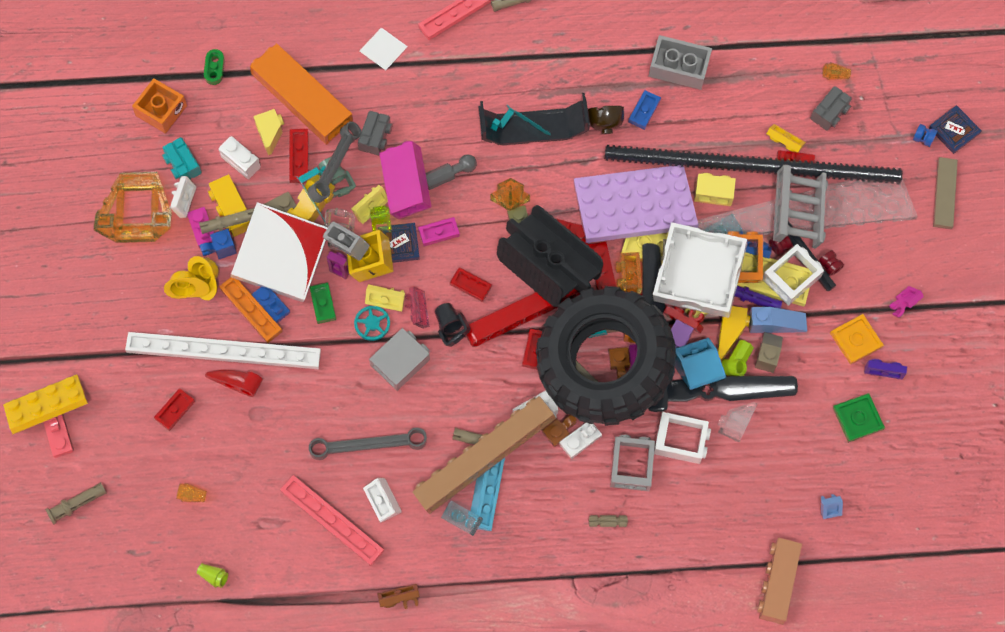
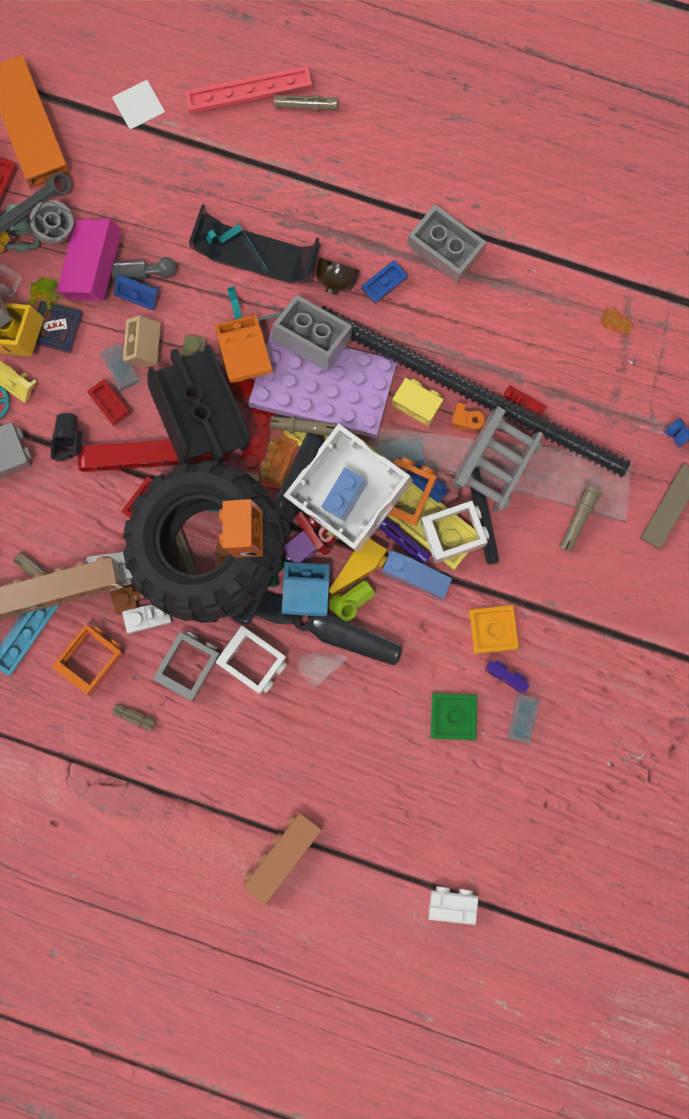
camera: 25 degrees right, 10 degrees up
(362, 162) = (51, 222): none -> light grey cylinder
(374, 133) = (84, 195): dark grey brick -> none
(375, 198) = (47, 268): light yellow plate -> none
(418, 307) = (41, 406): clear pink plate -> none
(438, 231) = (101, 331): dark pink plate -> none
(452, 191) = (136, 292): none -> blue plate
(466, 254) = (121, 371): none -> clear light blue plate
(476, 226) = (141, 341): none -> tan brick
(510, 194) = (192, 321): clear yellow brick -> none
(541, 175) = (236, 308): none -> teal piece
(545, 508) = (60, 664): none -> orange window
(562, 199) = (243, 348): none -> orange slope
(611, 166) = (311, 332): none -> light grey brick
(637, 240) = (303, 426): none -> dark tan pin
(648, 326) = (241, 528): none -> orange brick
(700, 275) = (344, 494): none -> medium blue brick
(758, 189) = (467, 421): none -> orange leg
(769, 352) = (391, 605): dark tan slope -> none
(779, 247) = (461, 494): dark red wheel -> none
(792, 142) = (523, 375): yellow plate -> none
(831, 108) = (590, 361): dark grey brick -> none
(831, 263) = (505, 536): dark red wheel -> none
(831, 507) = (375, 802): medium blue tile -> none
(883, 218) = (585, 507): none -> dark tan pin
(907, 298) = (569, 608): dark pink plate -> none
(913, 396) = (523, 719): none -> clear light blue plate
(930, 562) = (453, 906): none -> white brick

